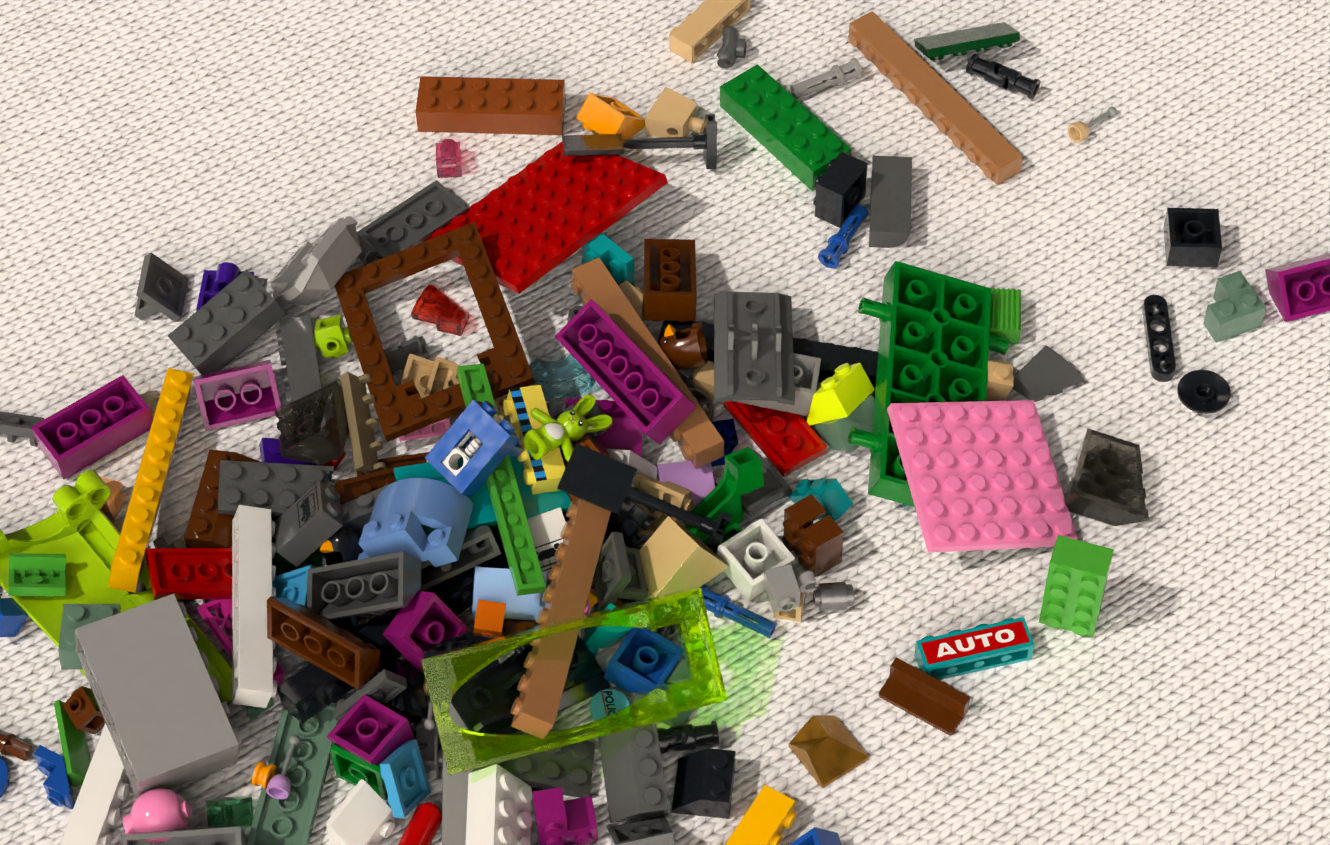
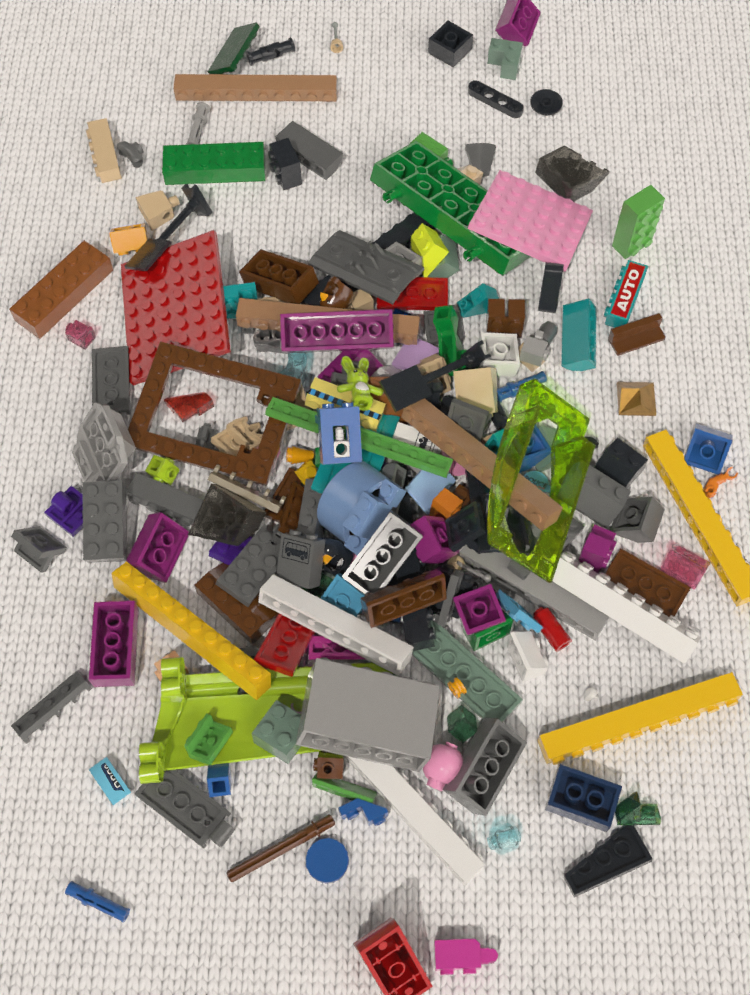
camera: 55 degrees left, 10 degrees up
(280, 785) = (469, 682): lavender hinge -> none
(856, 217) = (315, 190): blue pin -> none
(865, 633) = (579, 336): none -> teal brick
(897, 554) = (550, 287): none -> black beam

